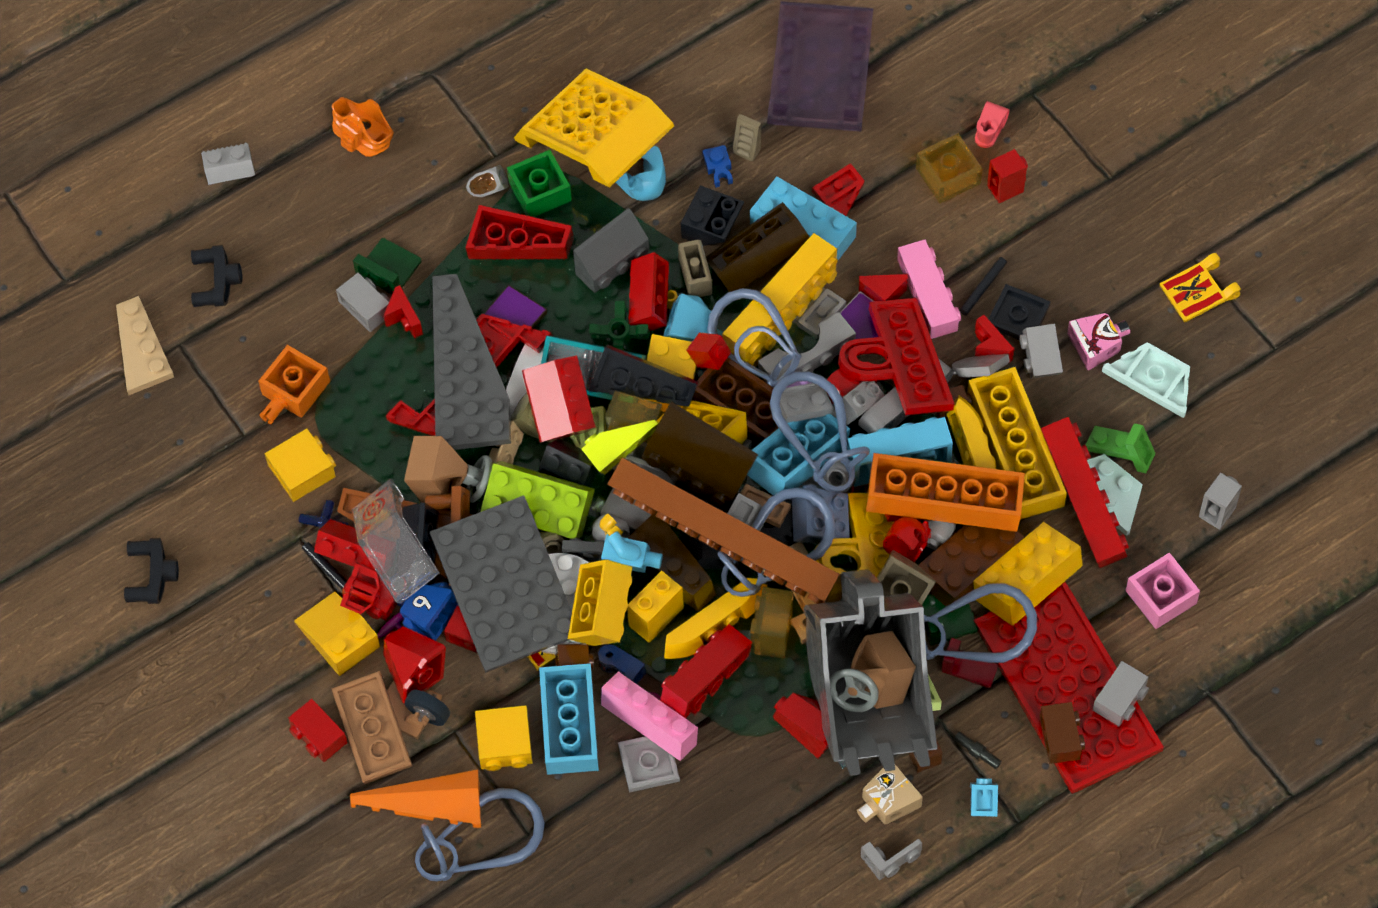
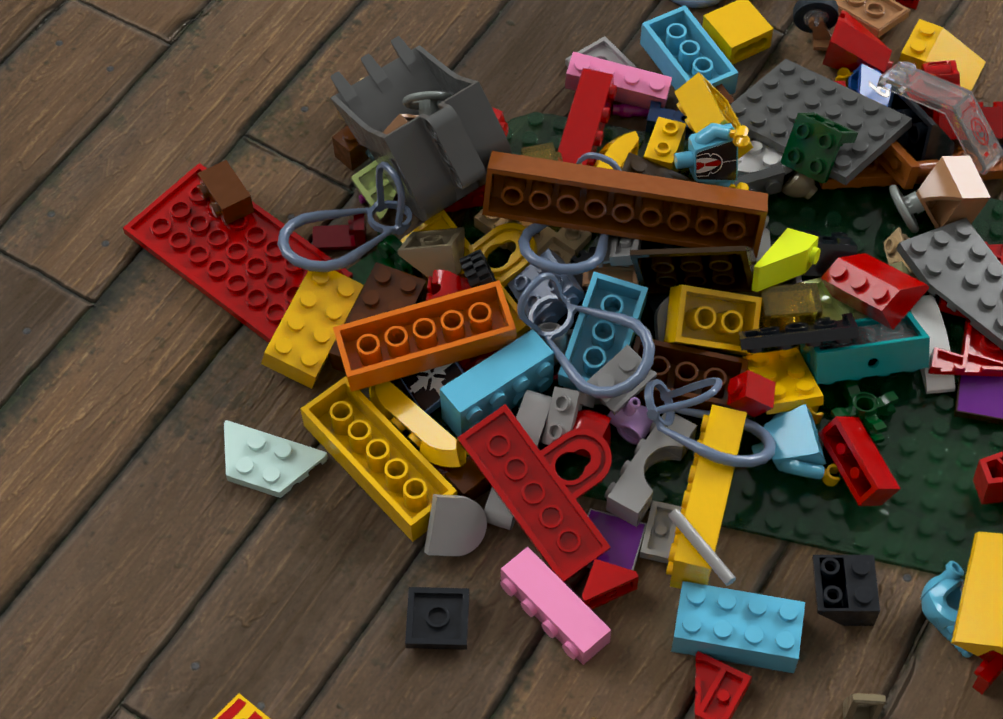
camera: 155 degrees right, 5 degrees down
(524, 536) = (815, 145): none -> dark green bracket
(554, 502) = (835, 206): lime brick -> none
(610, 251) = (926, 489): dark grey slope -> none
(695, 268) = (824, 506): dark tan brick -> none
(718, 162) = (880, 677): blue plate -> none
(758, 248) = (771, 551): dark brown slope -> none
(813, 245) = (702, 547): none -> light grey bar
(875, 532) = (477, 269): none -> black tyre
(876, 859) = (349, 50): light grey bracket -> none
(977, 750) = (303, 172): pearl dark grey bar -> none
(983, 286) = (493, 643): black bar -> none
(984, 797) = (282, 135): medium azure bracket -> none
(992, 340) = (447, 566): red slope -> none
(1041, 351) = (391, 571): light grey brick -> none
(1084, 492) = (285, 428): red brick -> none
(1097, 338) = (334, 621): torso -> none
(1121, 693) = (177, 245): light grey brick -> none
(1124, 445) = (262, 502): bright green bracket -> none
(1153, 376) = (253, 604): light aqua wing -> none
(1162, 590) = (167, 363): bright pink brick -> none
(1220, 500) = (130, 472): light grey brick -> none

